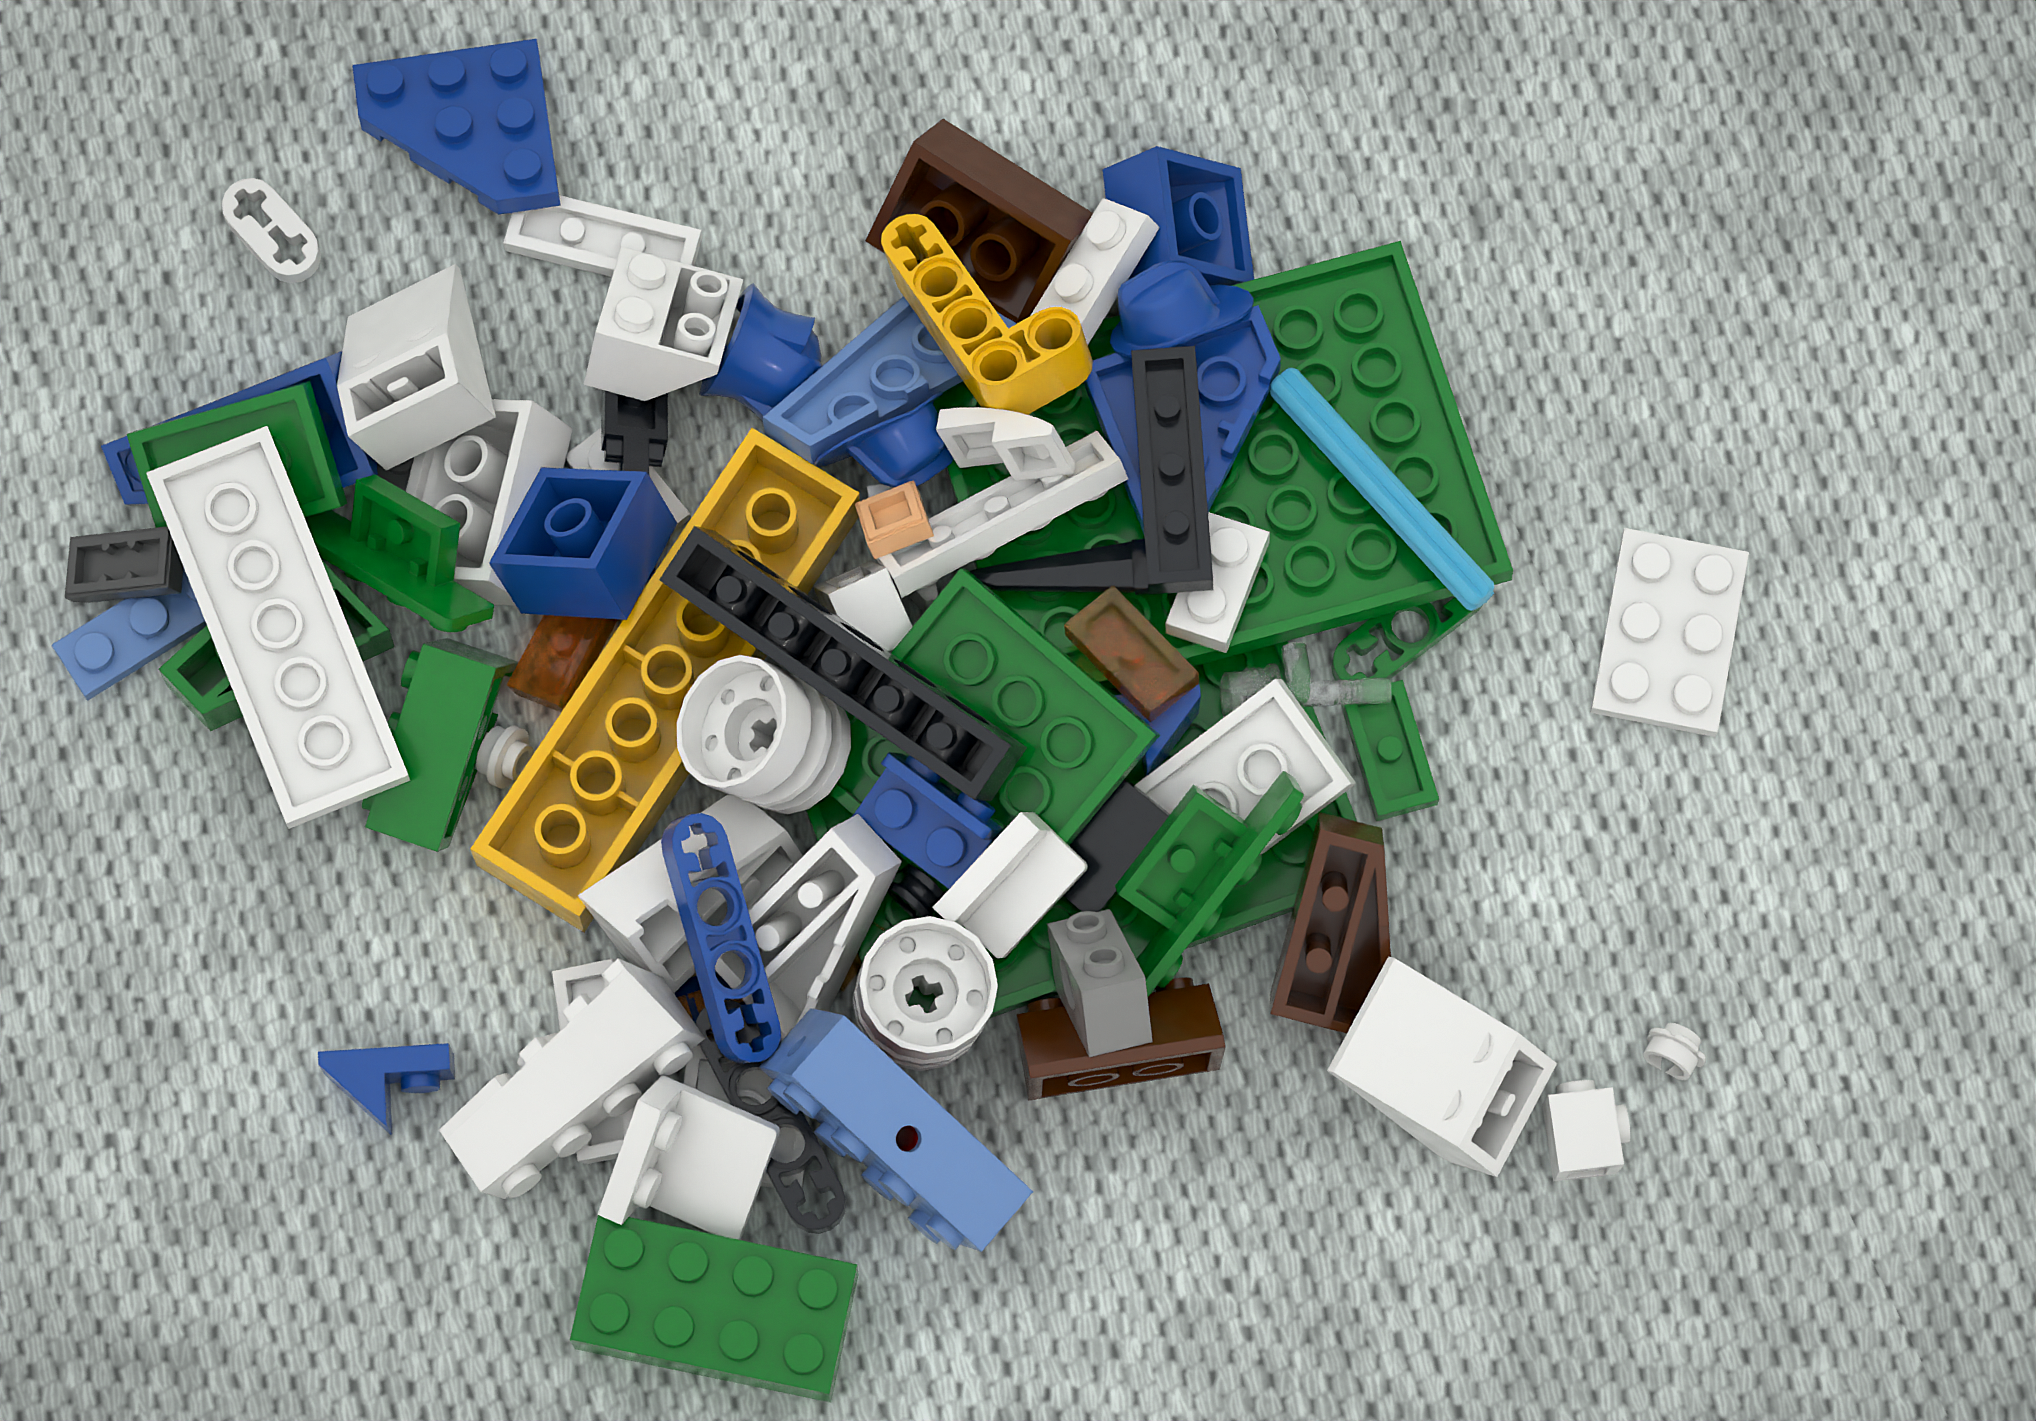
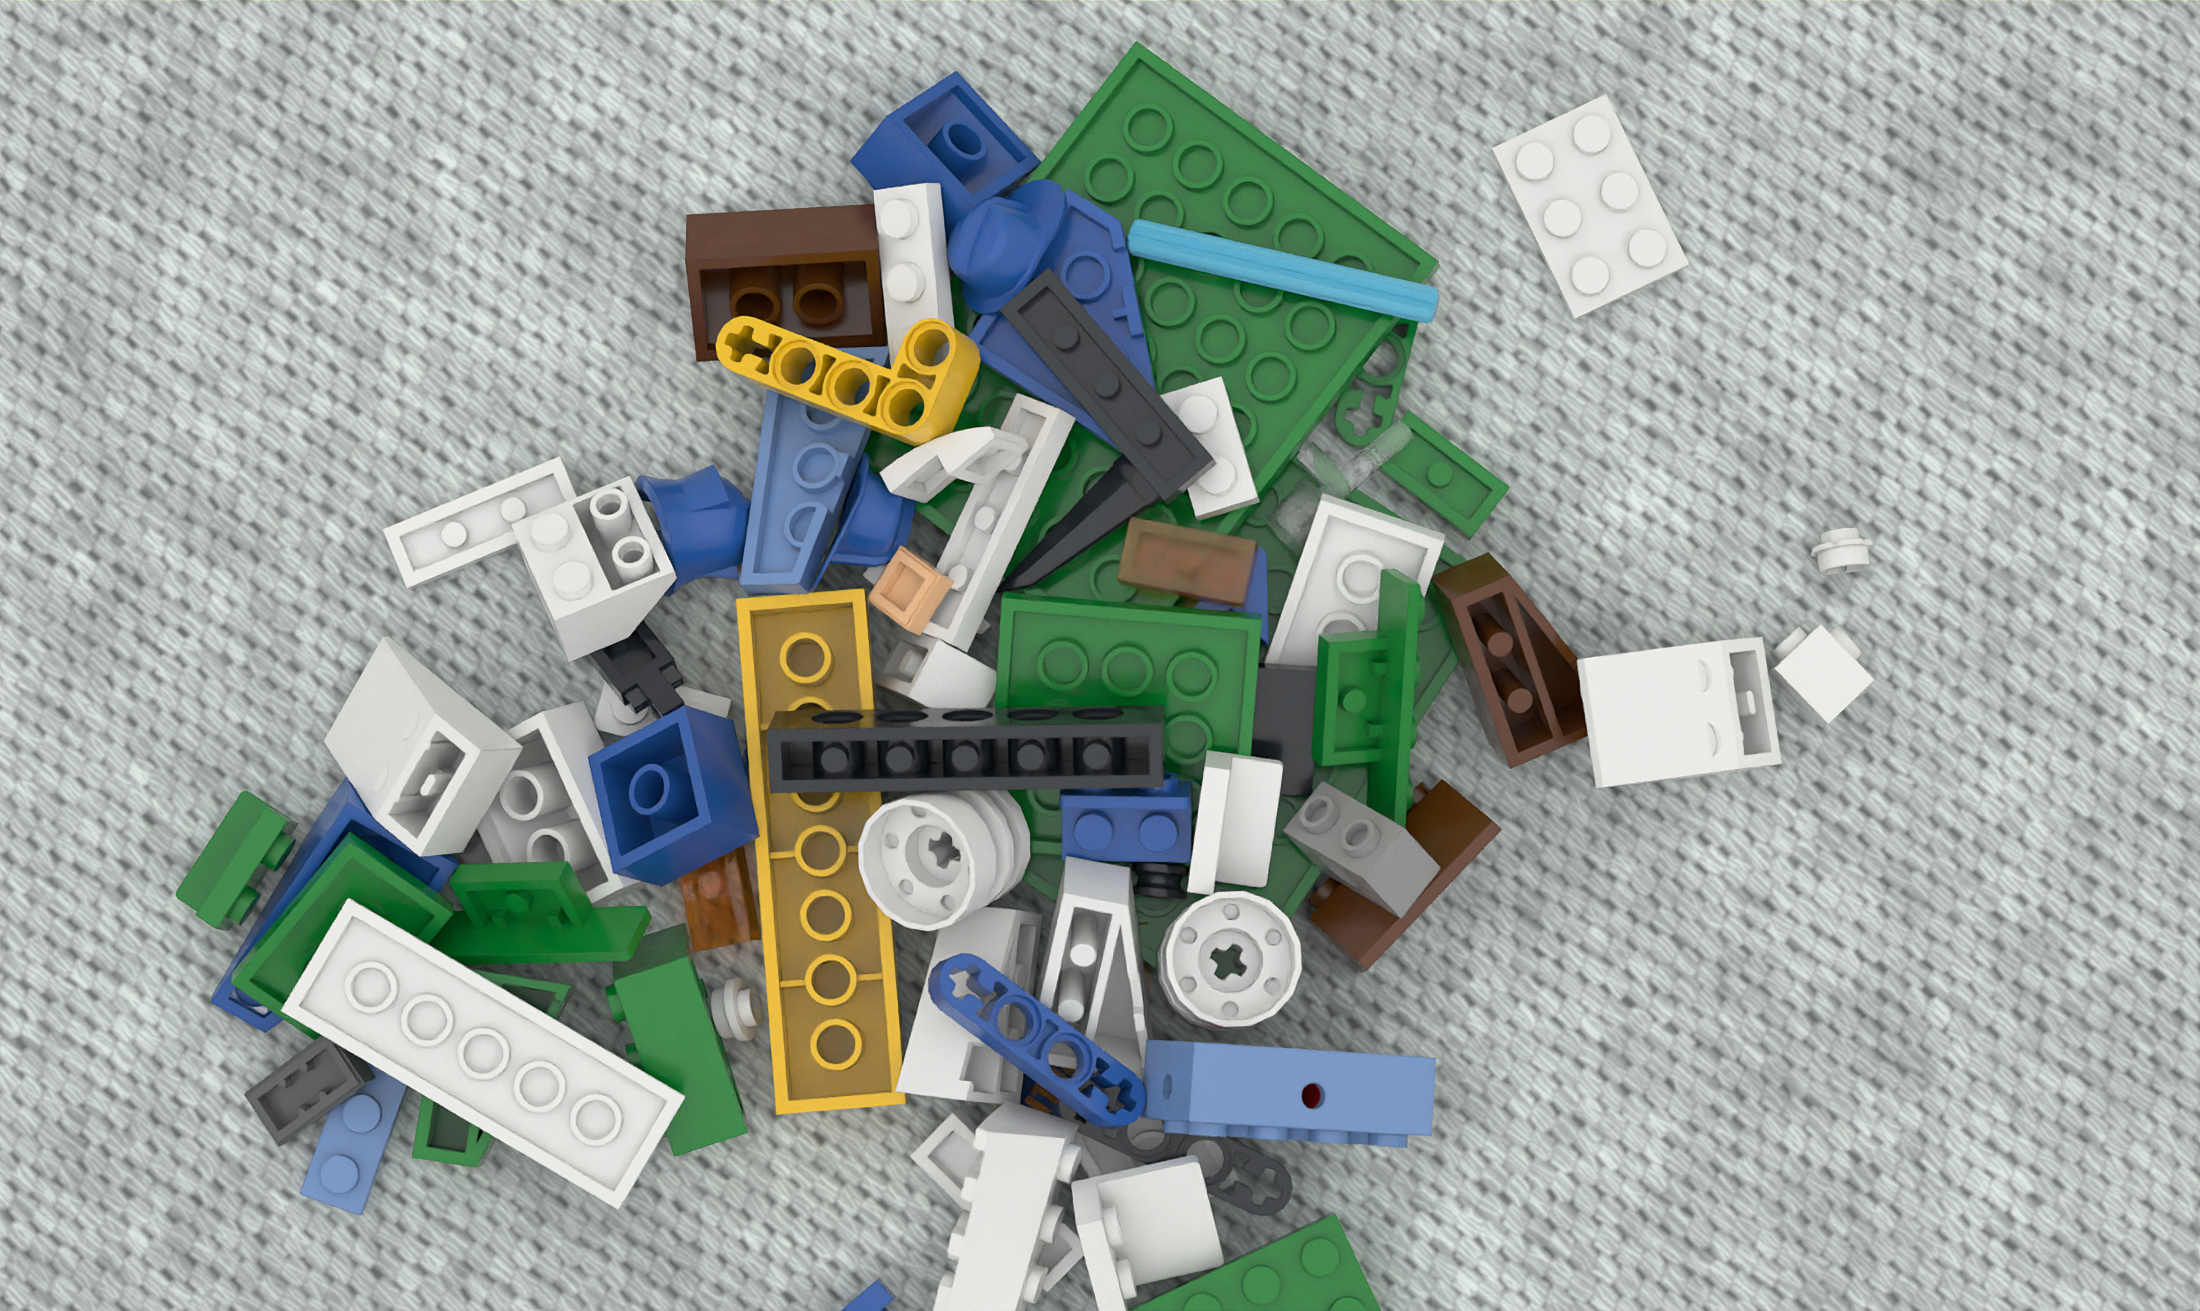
camera: 30 degrees left, 10 degrees up
(207, 356) = (236, 860): none -> green bracket
(282, 221) = (202, 732): white beam -> none
(468, 120) = (296, 504): blue plate -> none

